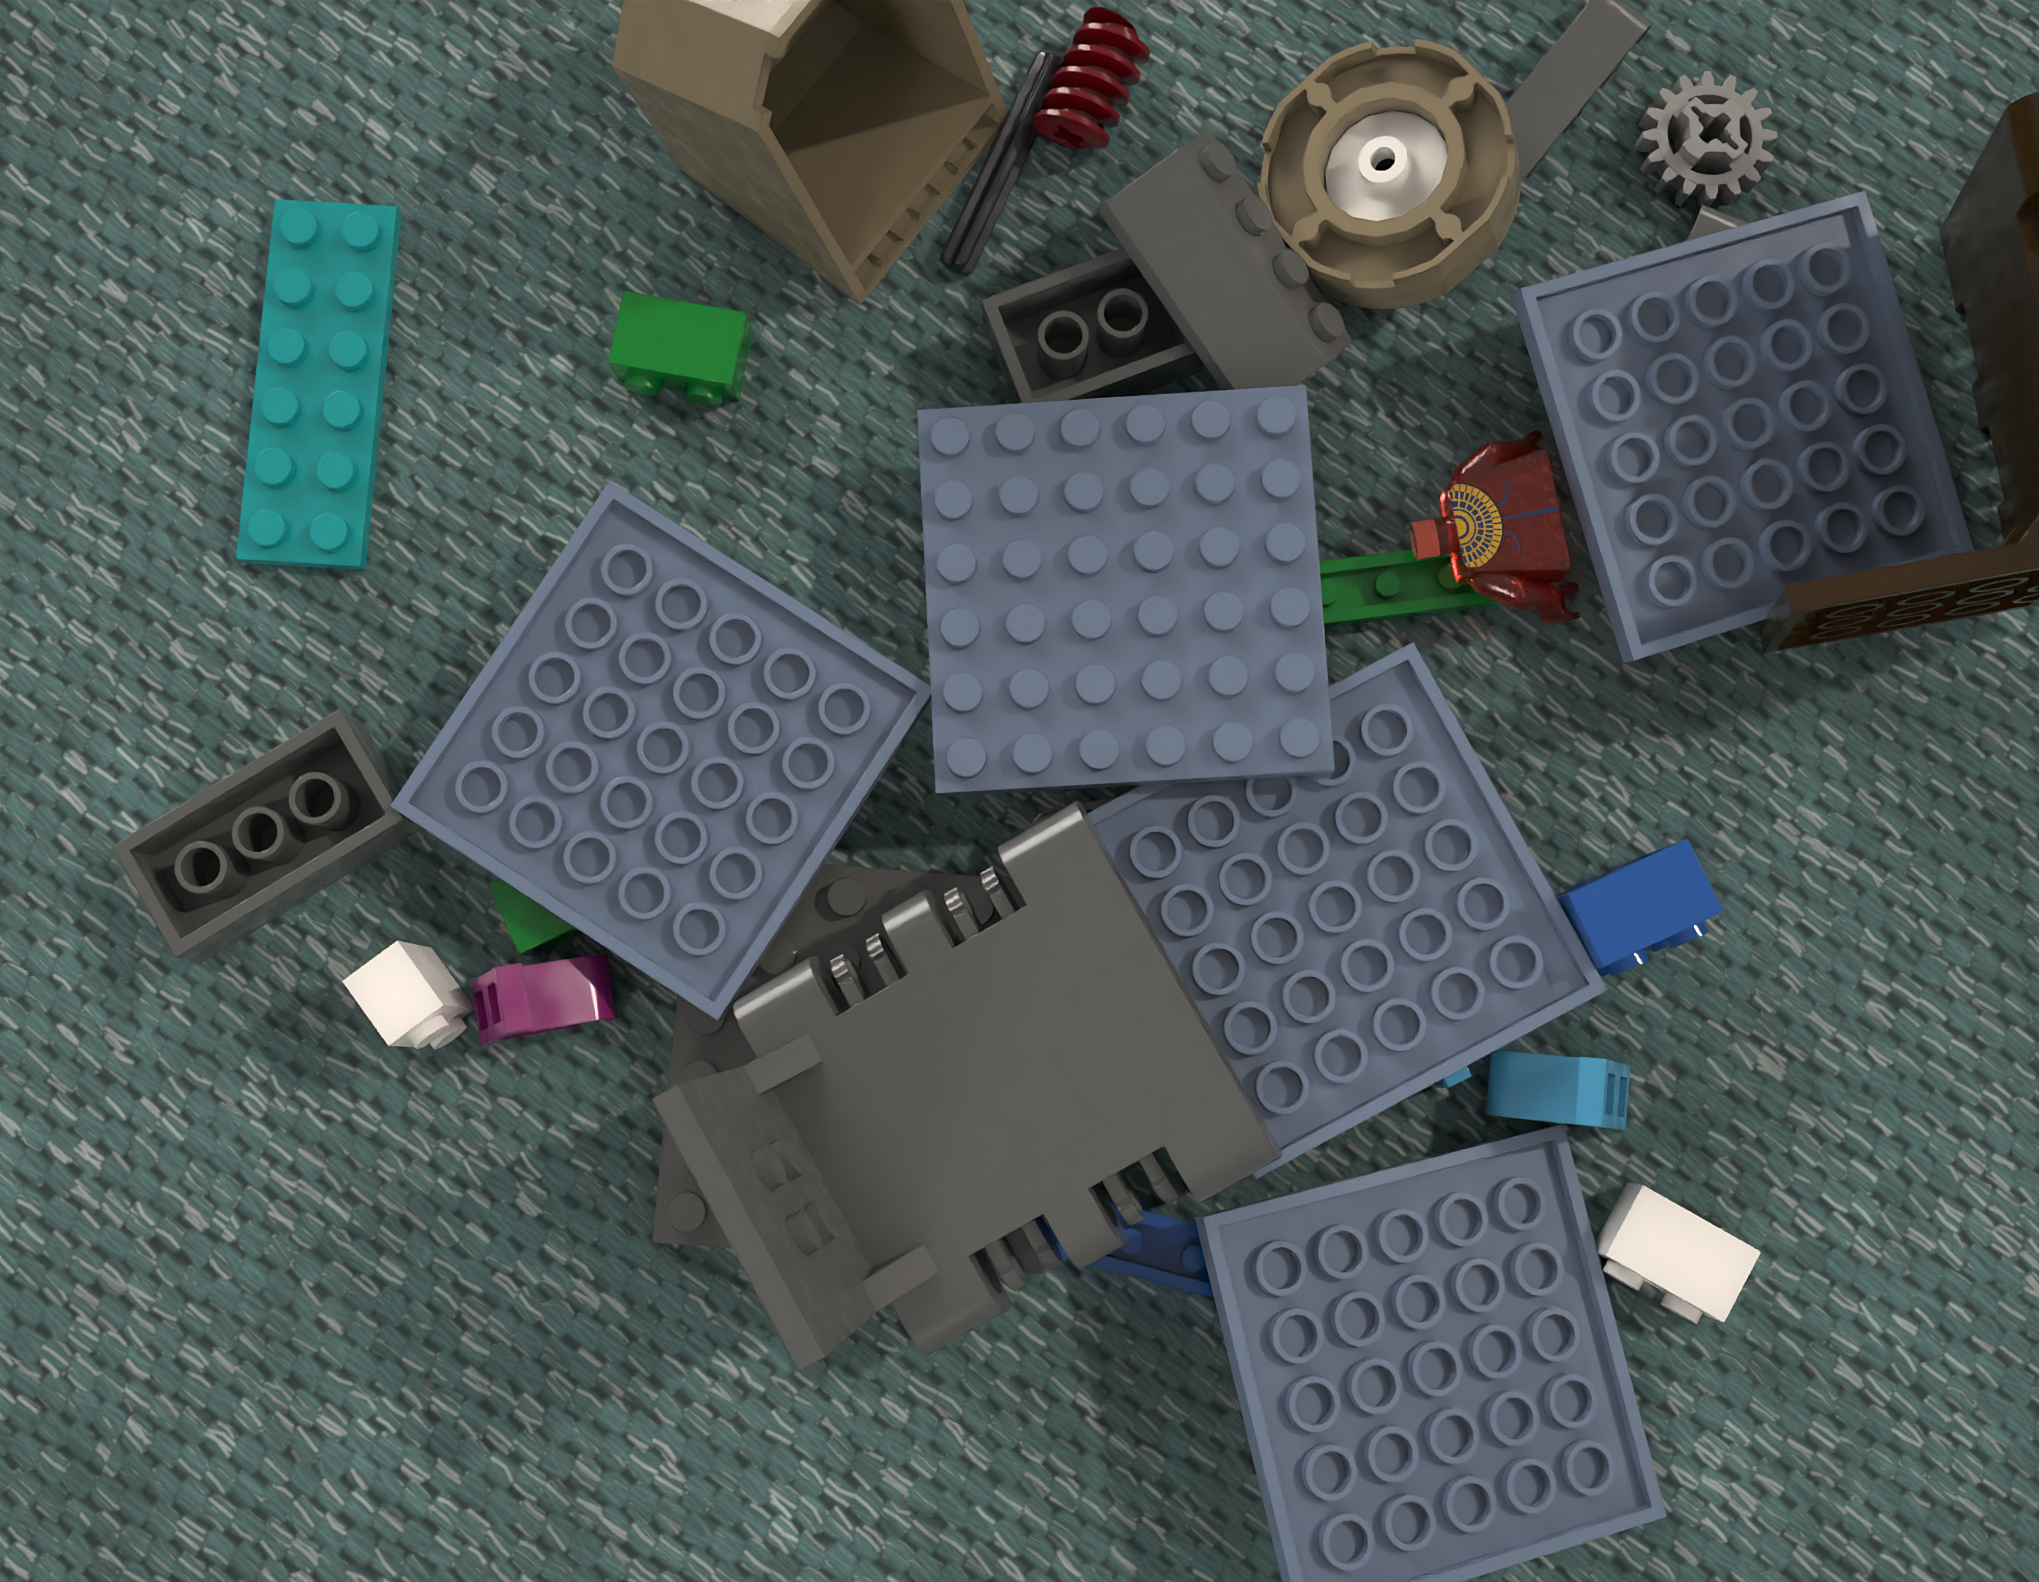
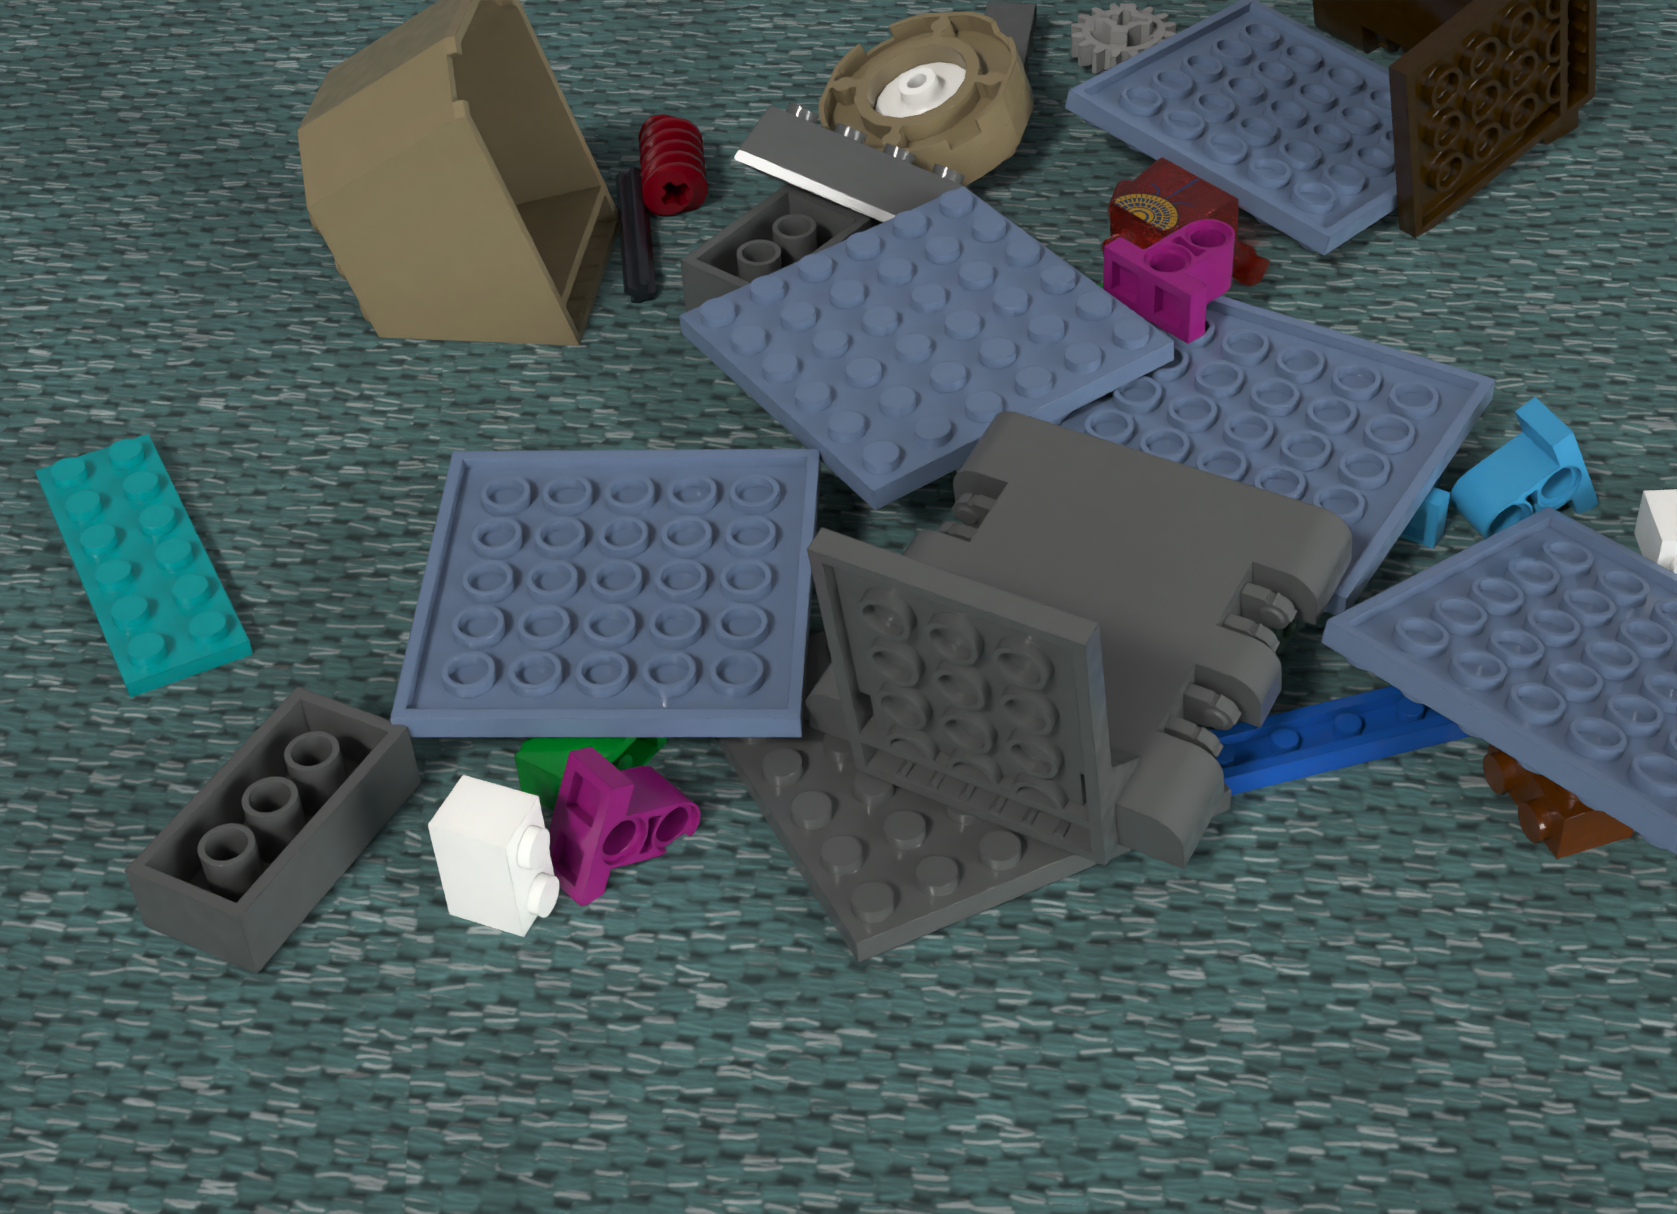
camera: 30 degrees left, 40 degrees down
(680, 348) = (451, 405): green brick -> none
(1420, 670) = (1173, 276): none -> magenta tile
(1639, 905) = (1477, 329): blue brick -> none

